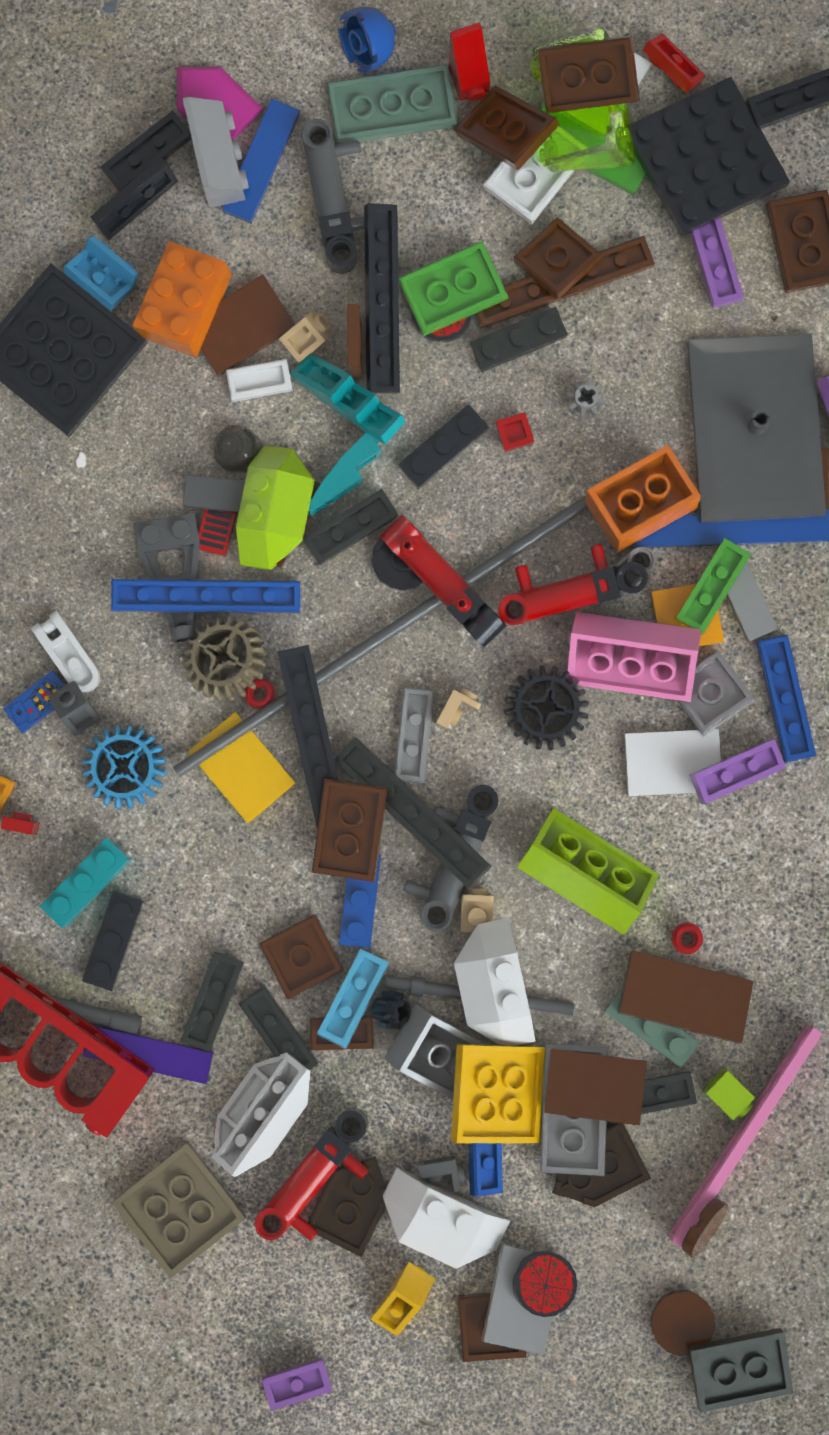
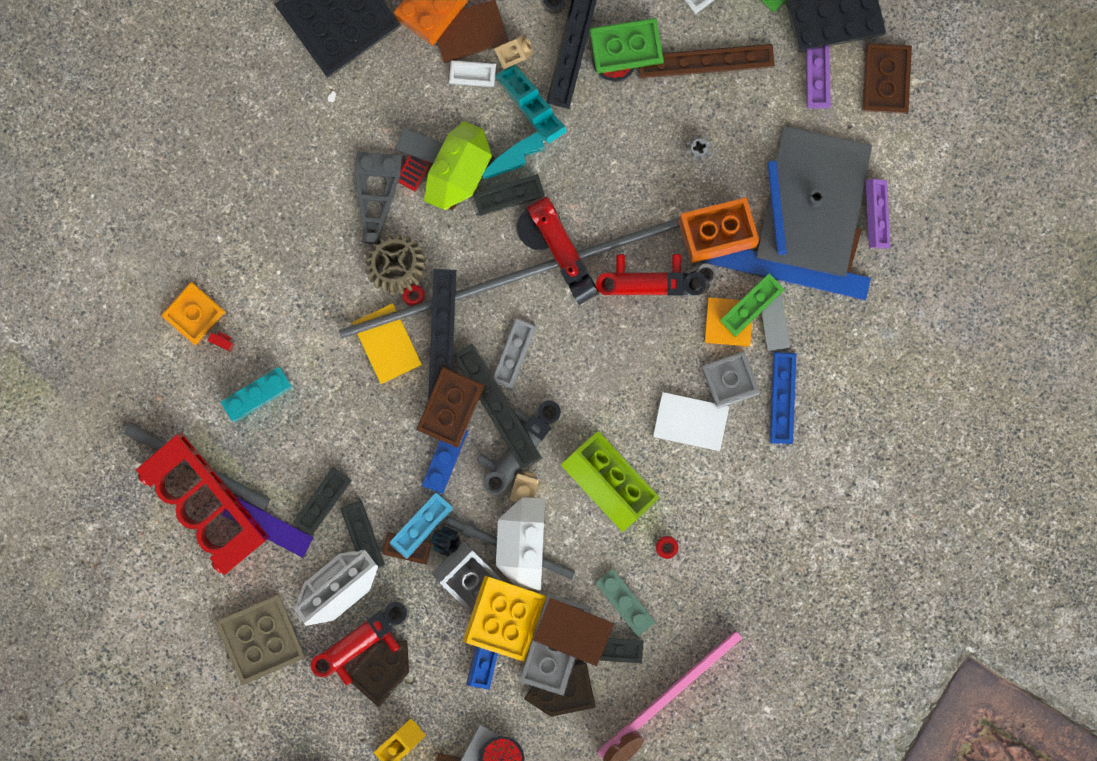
camera: 15 degrees right, 0 degrees up
(34, 703) = (256, 259): blue tile -> none
(67, 653) = (286, 231): white plate -> none
(74, 708) = (280, 270): dark grey bracket -> none
(112, 941) = (264, 440): black plate -> none
(113, 777) = (314, 315): dark azure gear -> none
(205, 596) = (393, 216): blue tile -> none
(236, 448) = (443, 117): clear smoke hair -> none
(301, 956) = (393, 487): reddish brown tile -> none
(354, 341) = (546, 65): reddish brown tile -> none
(436, 1169) = (448, 660): dark grey bracket -> none
(441, 1221) = (440, 697): white wedge -> none
(443, 446) = (590, 155): black plate -> none
(451, 712) = (544, 344): tan bracket -> none
(514, 432) = (642, 159): red plate -> none
(518, 339) = (663, 93): pearl dark grey plate -> none
(557, 258) = (706, 43): reddish brown tile -> none
(572, 713) = (628, 367): black gear -> none
(633, 656) = (682, 339): bright pink slope -> none
(685, 997) = (654, 587): reddish brown tile -> none
(711, 448) = (777, 208): none -> blue tile
(729, 1094) = (666, 664): lime brick -> none
(737, 771) = (733, 439): medium lavender plate -> none

